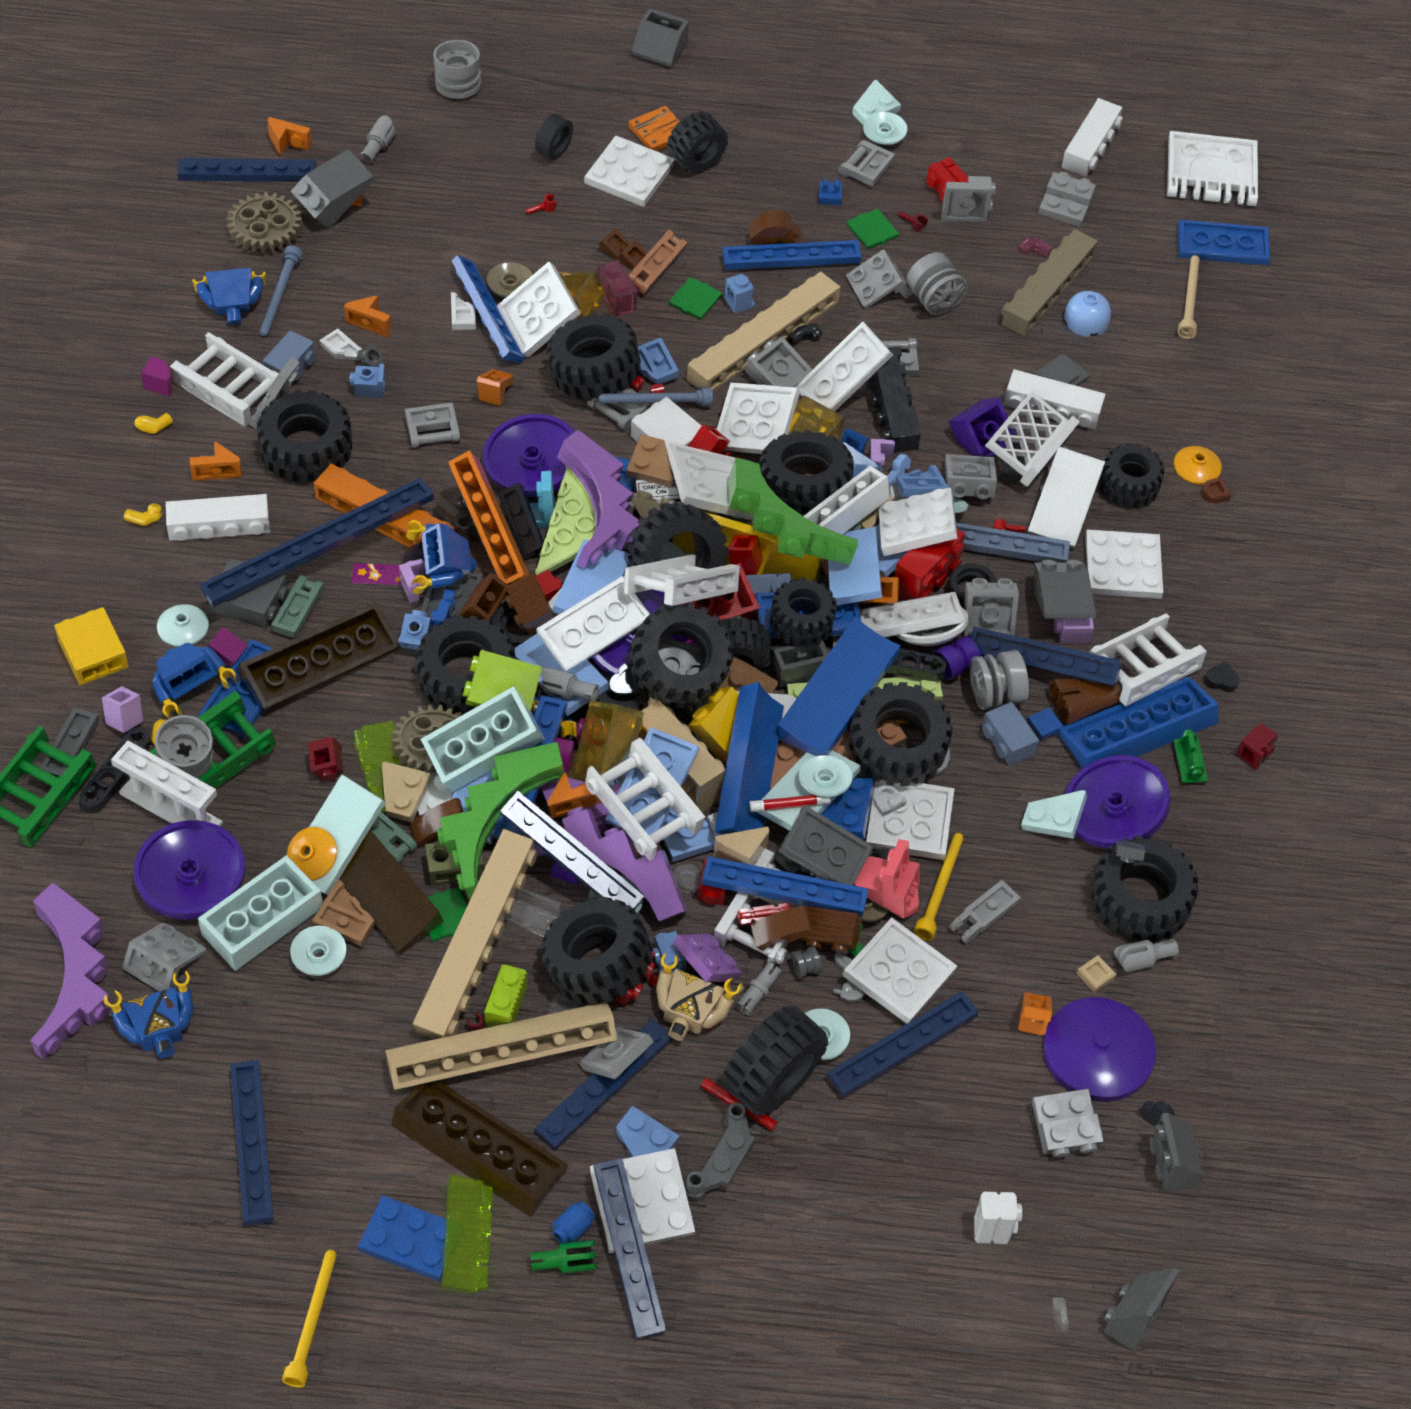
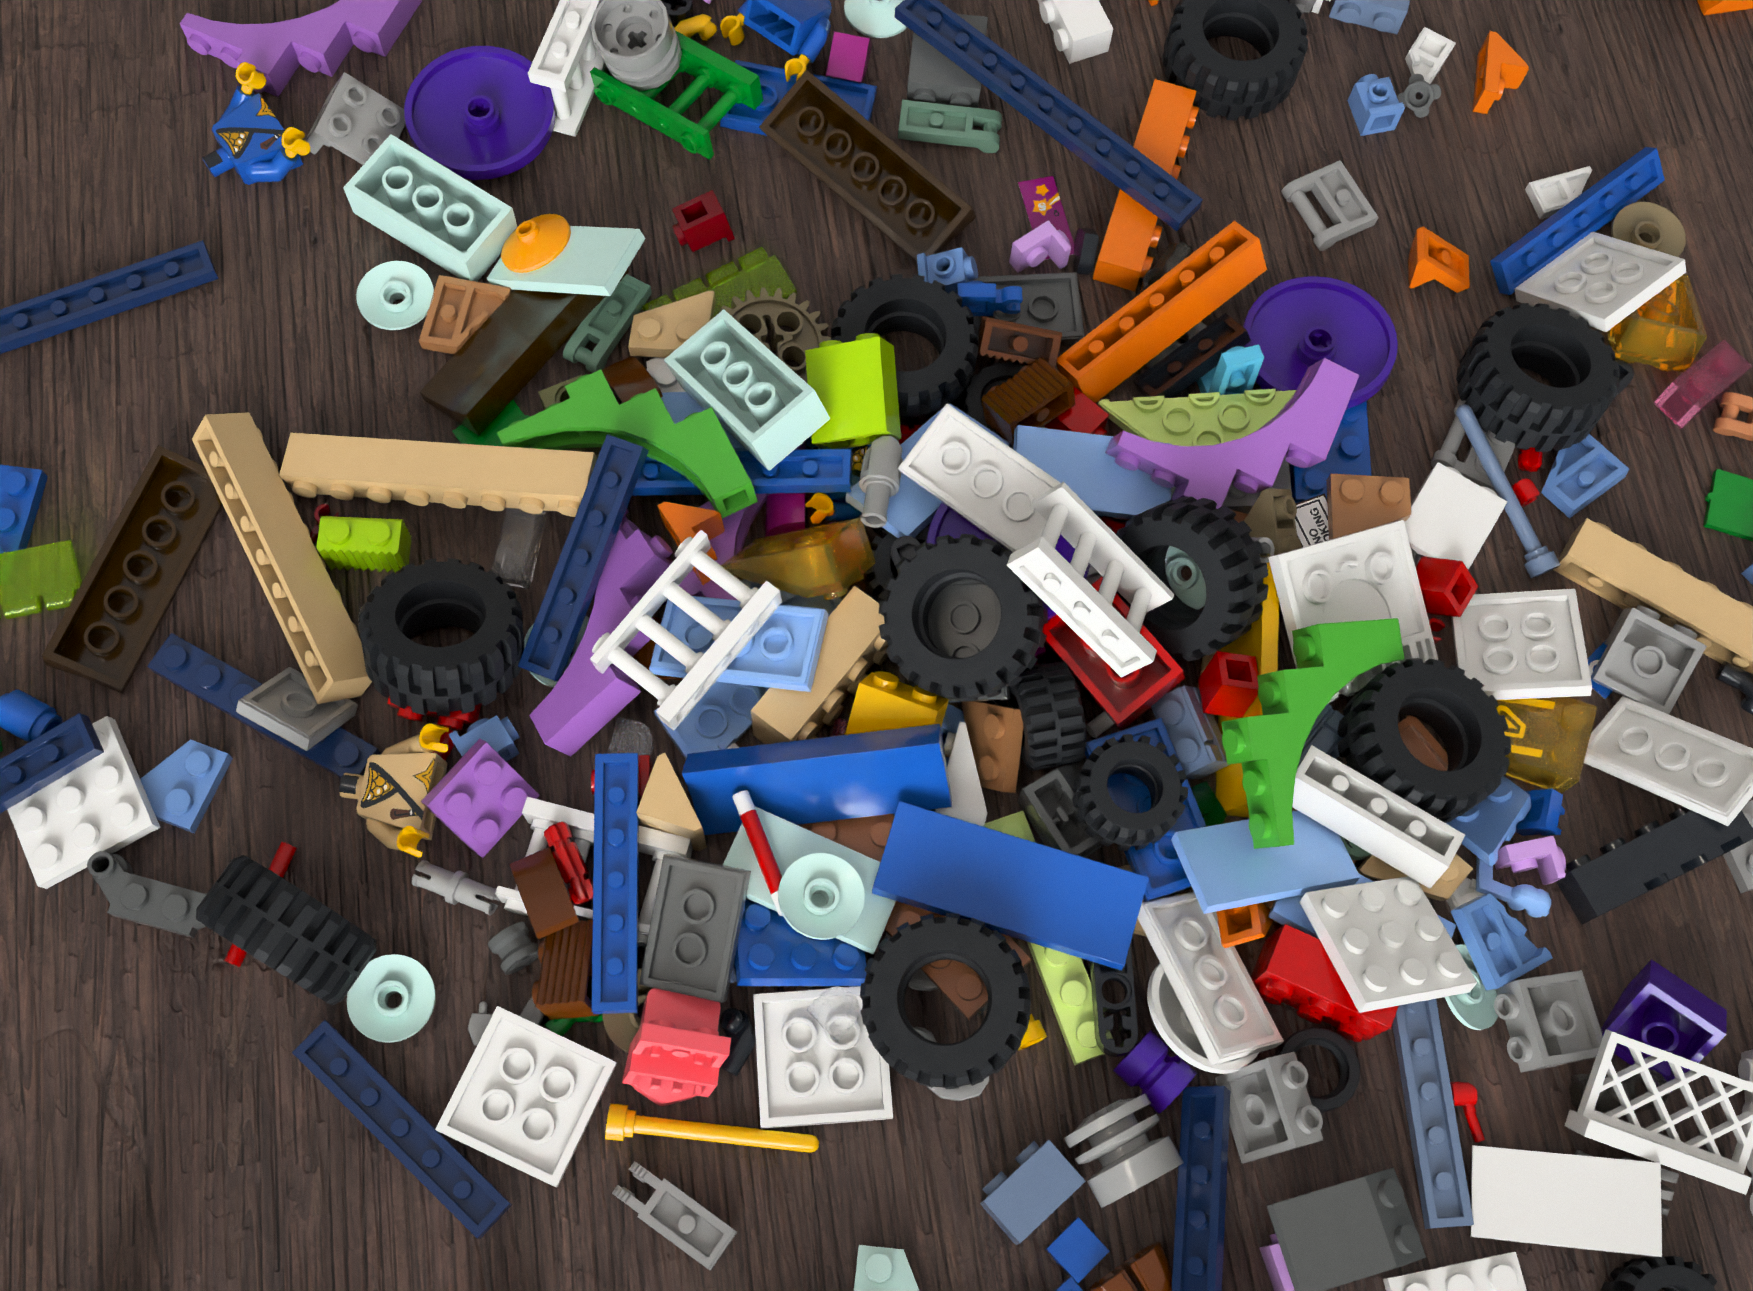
camera: 75 degrees right, 15 degrees up
(445, 555) = (1079, 268): blue torso -> none

